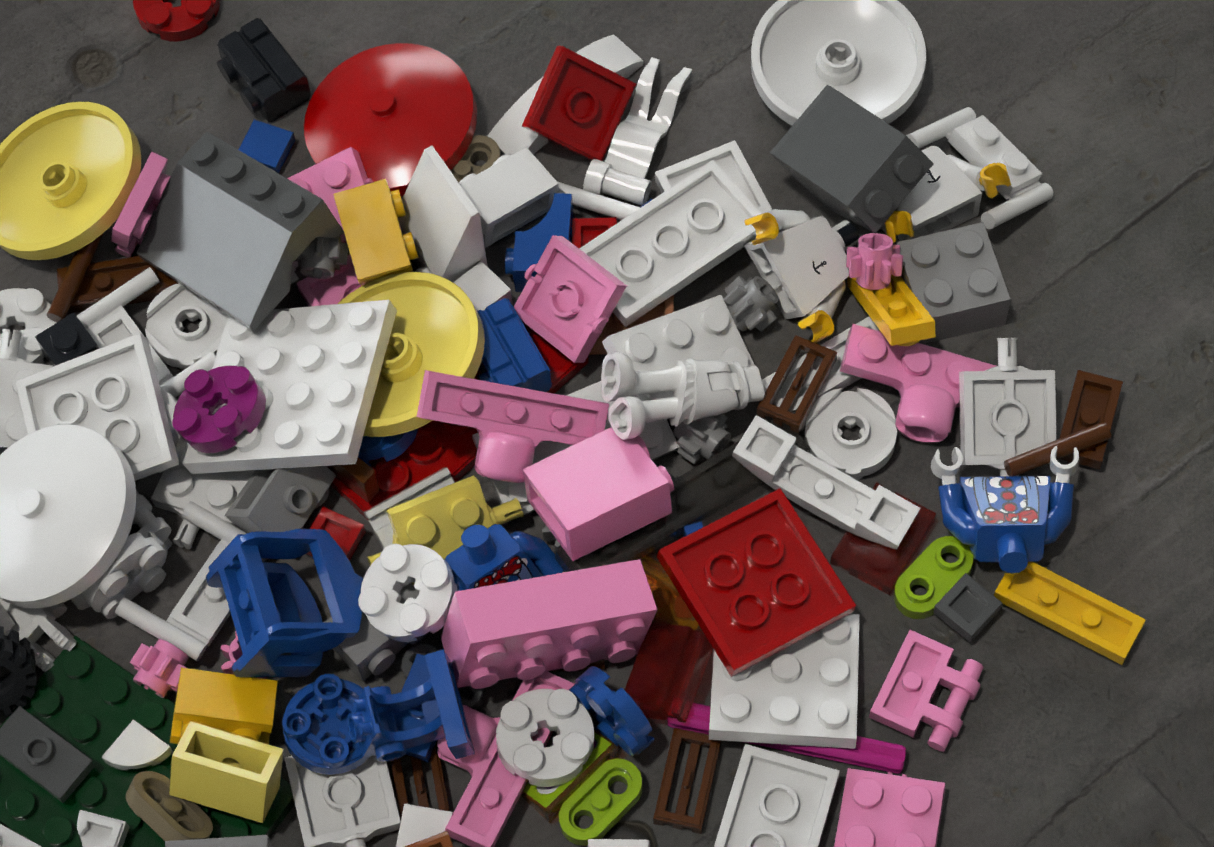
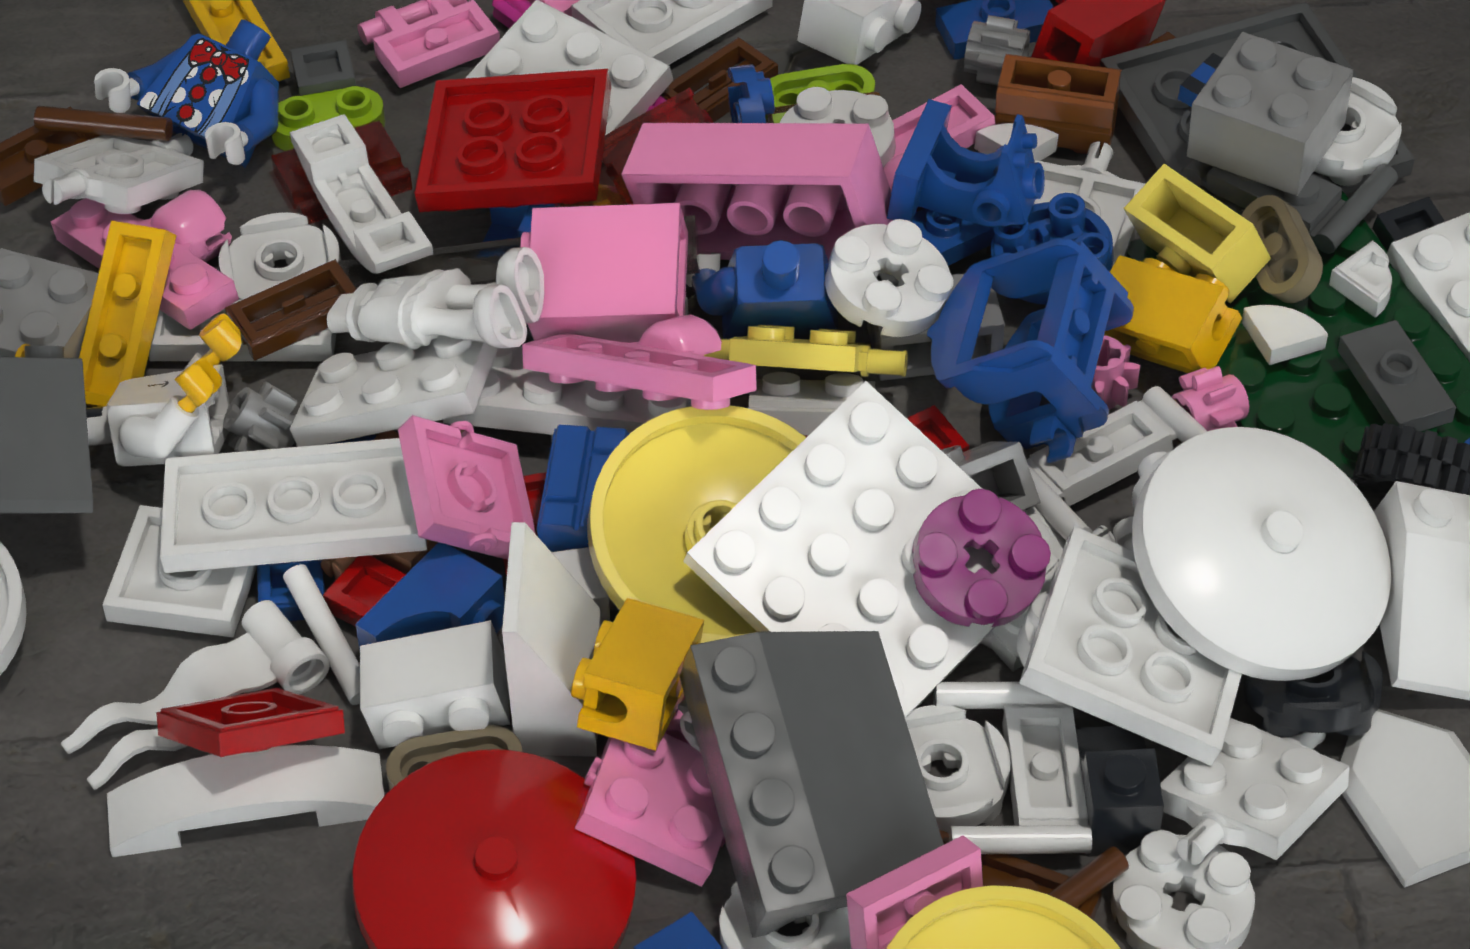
camera: 150 degrees left, 15 degrees down
(874, 261) = (101, 346): bright pink gear -> none

